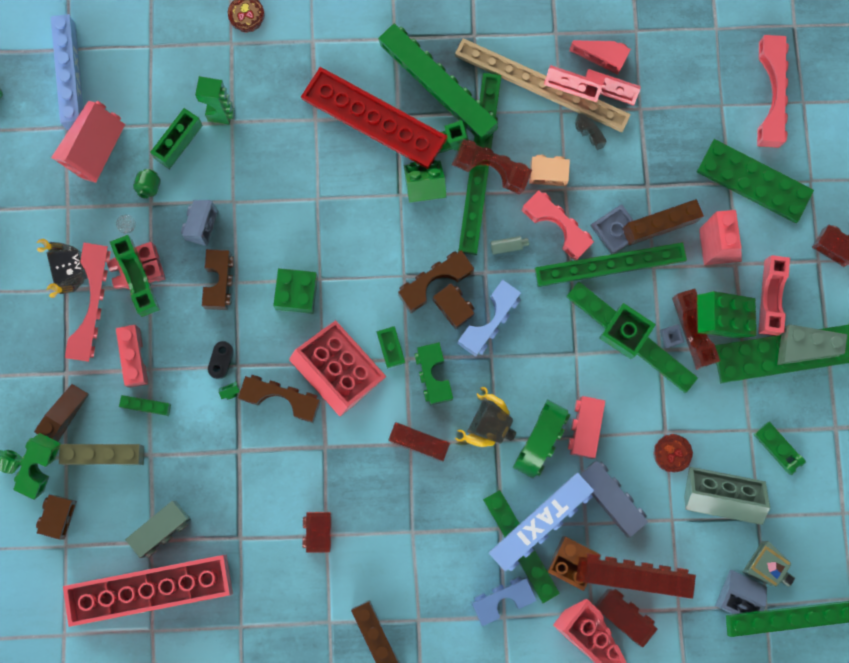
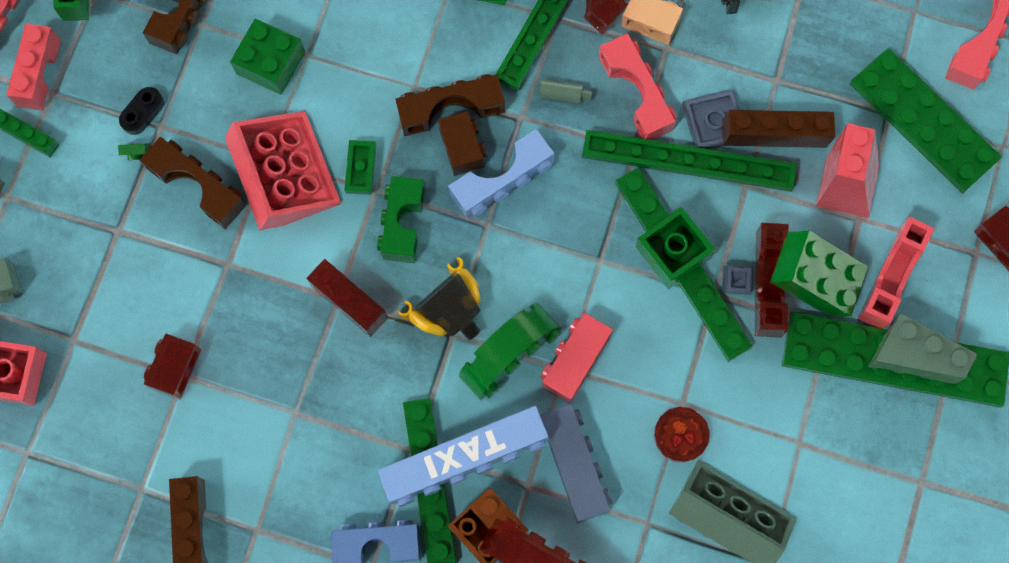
camera: 30 degrees right, 5 degrees down
(779, 448) = (831, 480): green plate -> none

